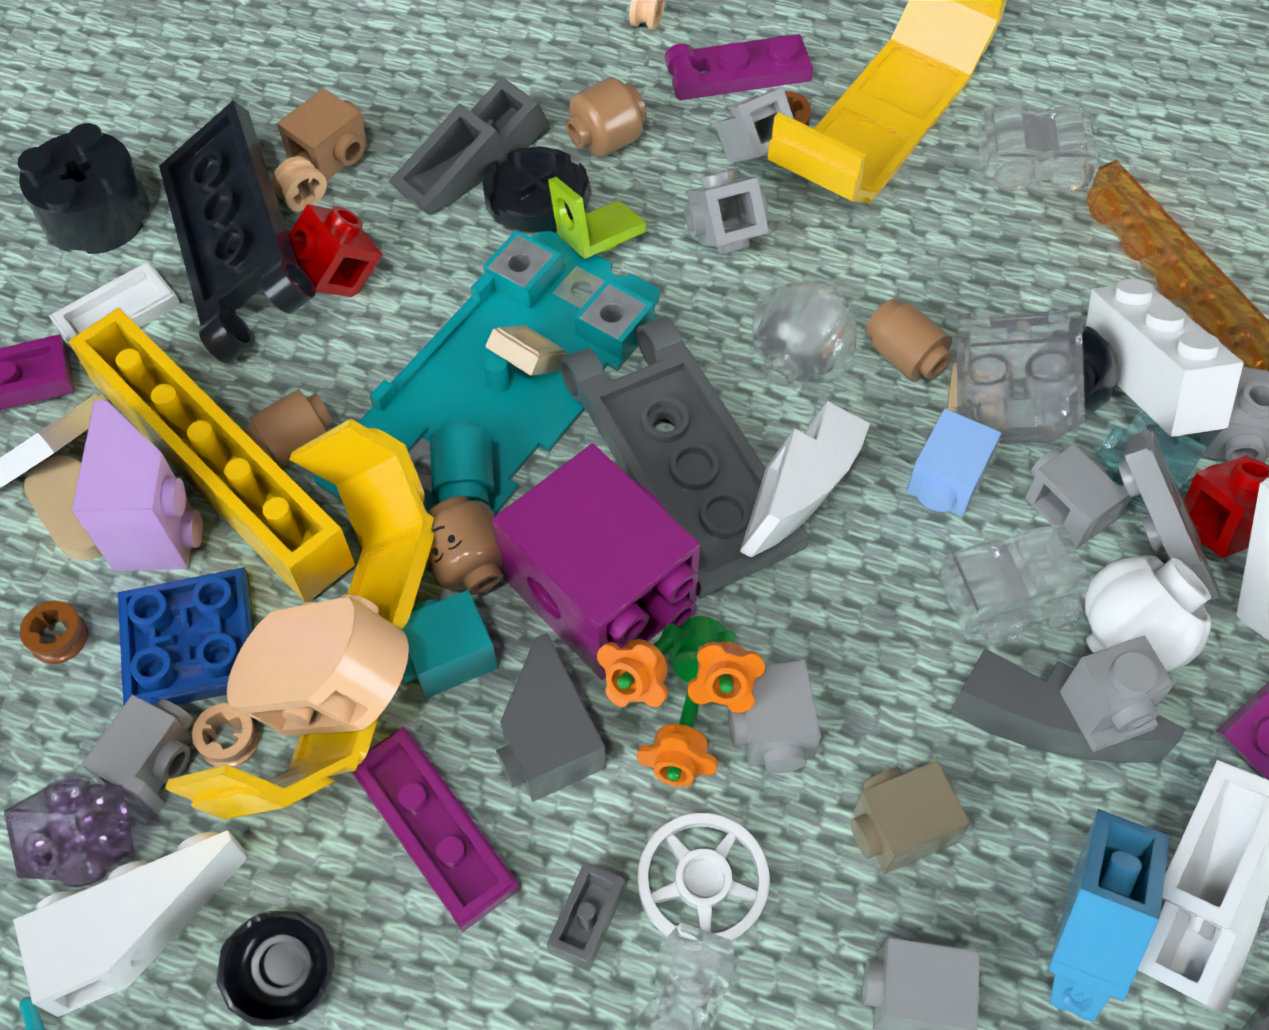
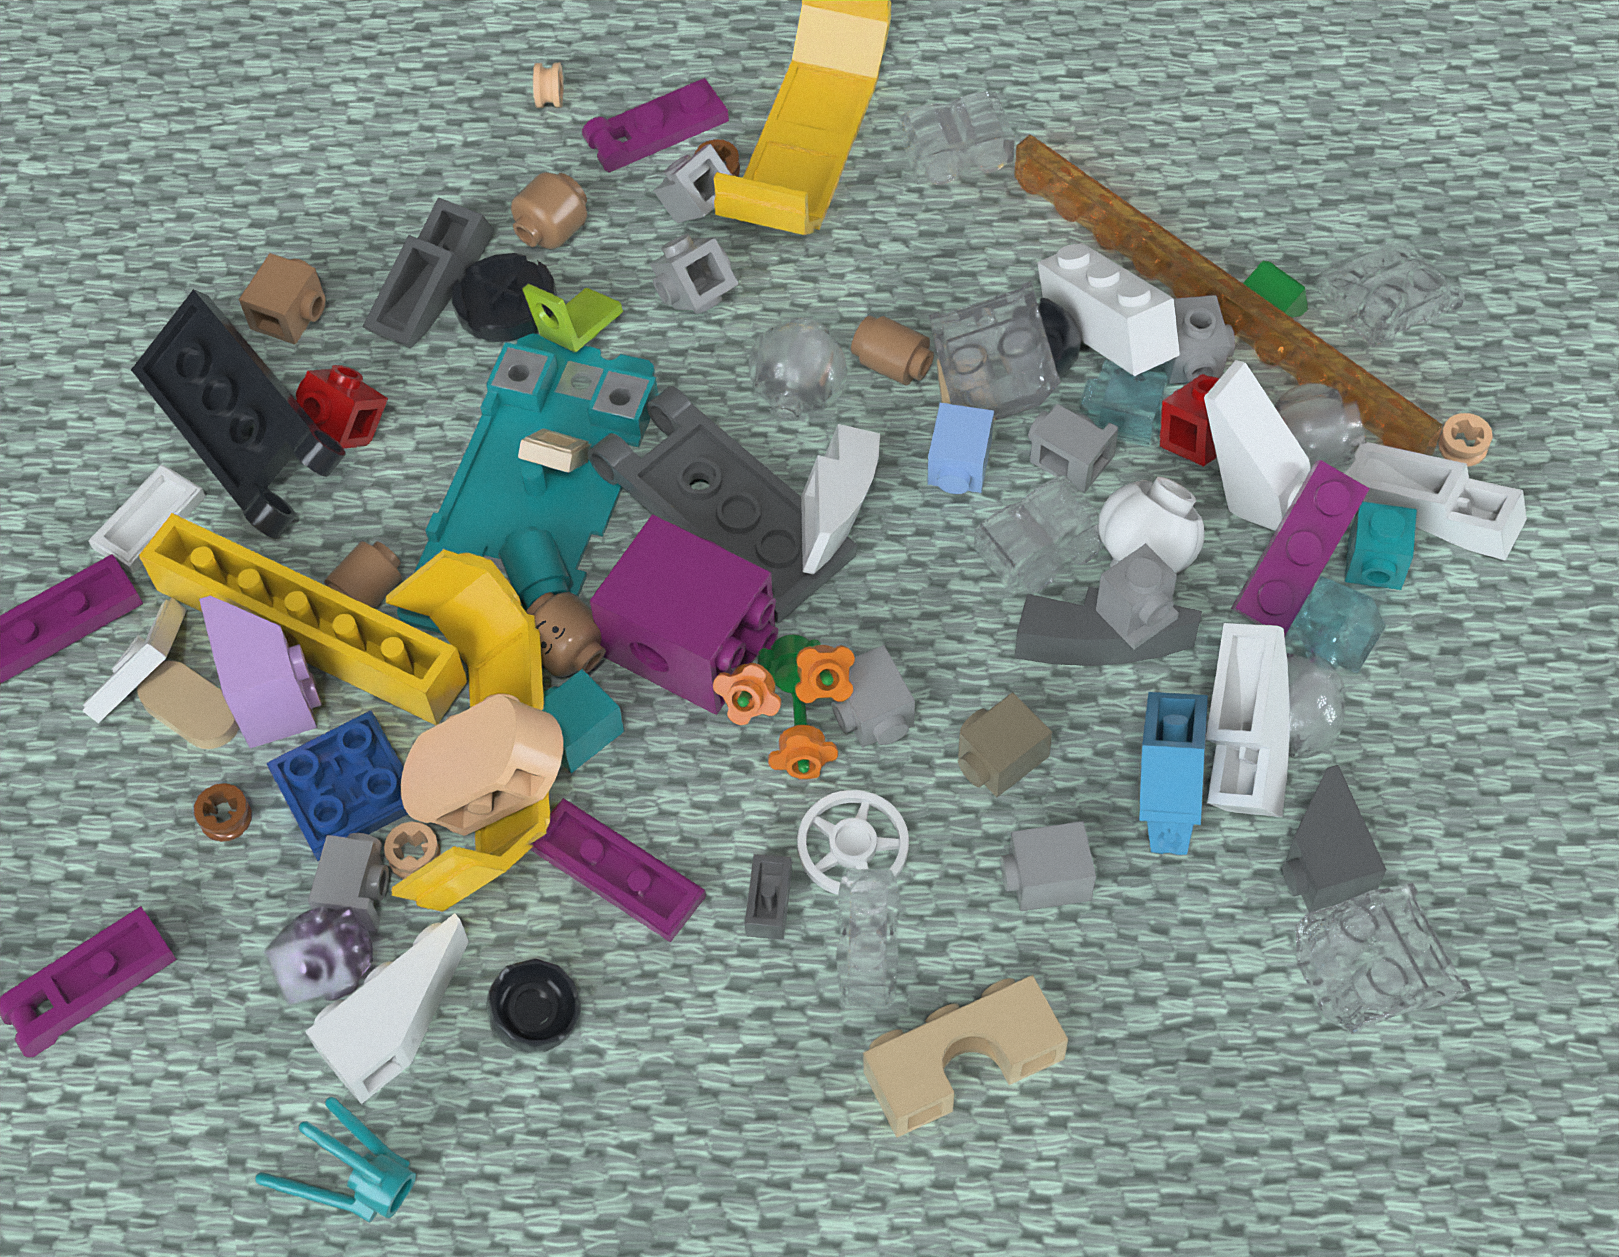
camera: 15 degrees left, 0 degrees up
(84, 190) = (74, 413): black brick -> none
(290, 174) = (278, 350): light nougat bush -> none
(547, 727) = (688, 762): dark grey slope -> none
(1169, 523) = (1151, 447): light grey hinge -> none

